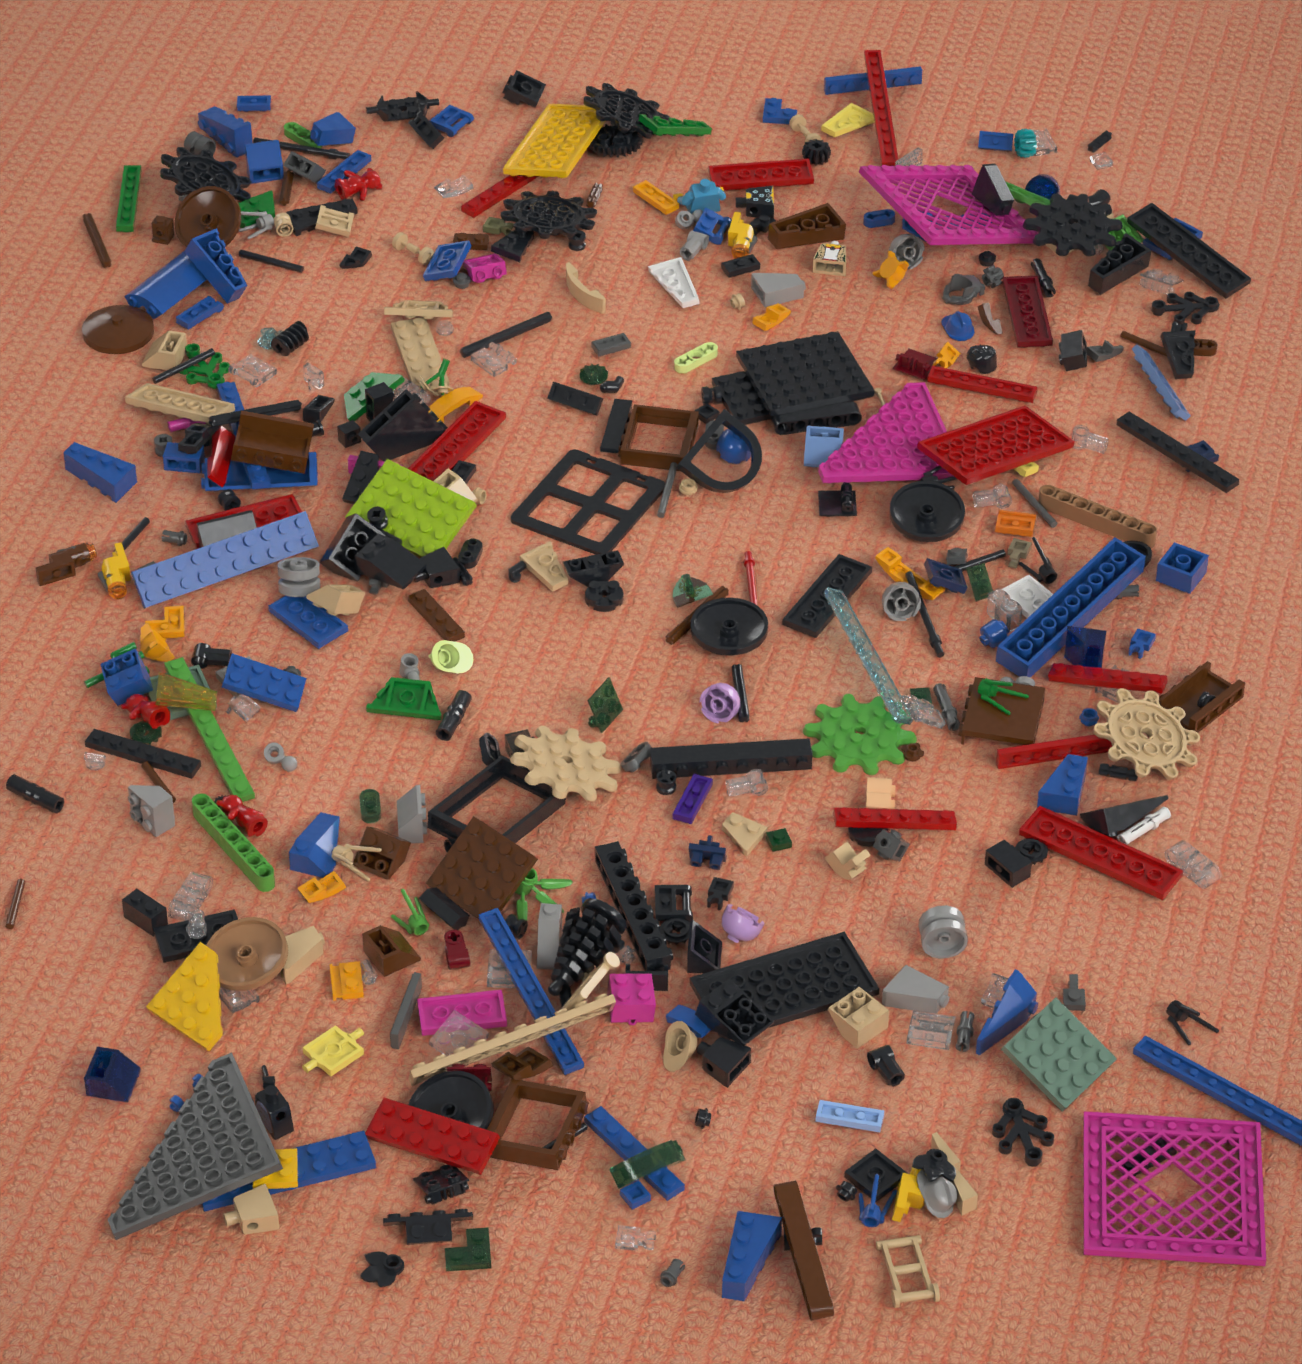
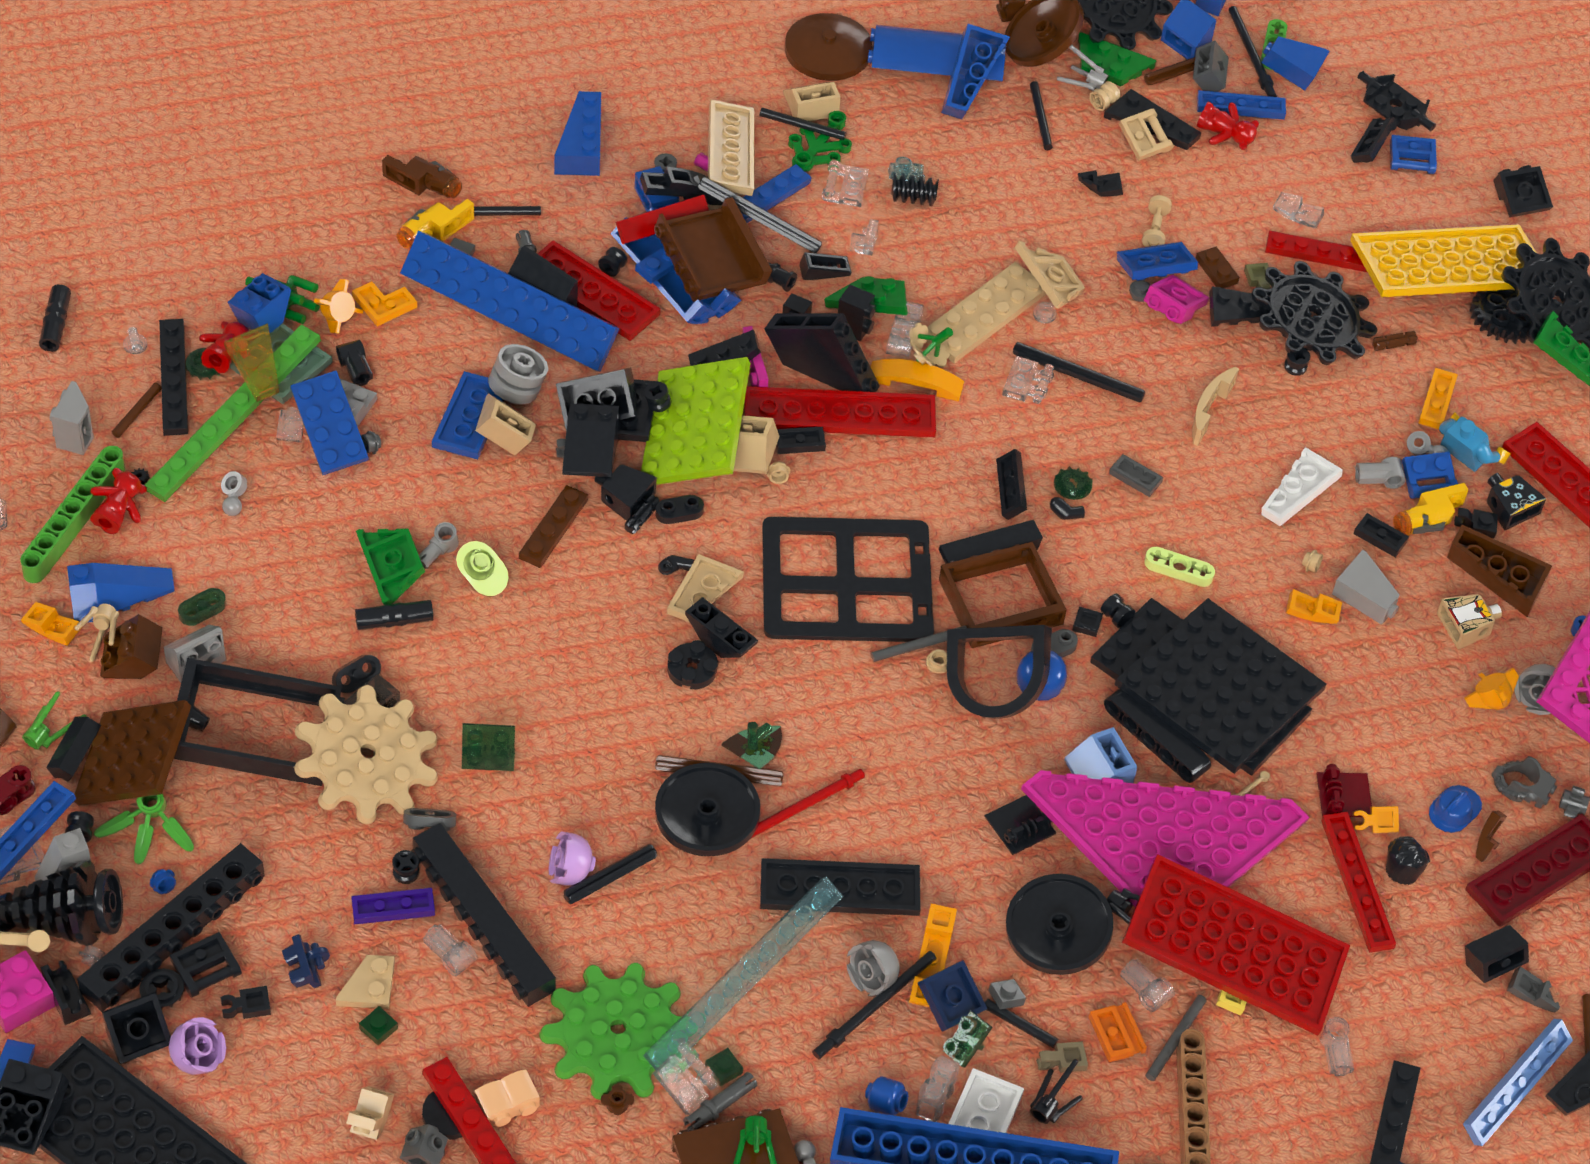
camera: 55 degrees right, 10 degrees up
(199, 312) = (904, 96): blue plate -> none

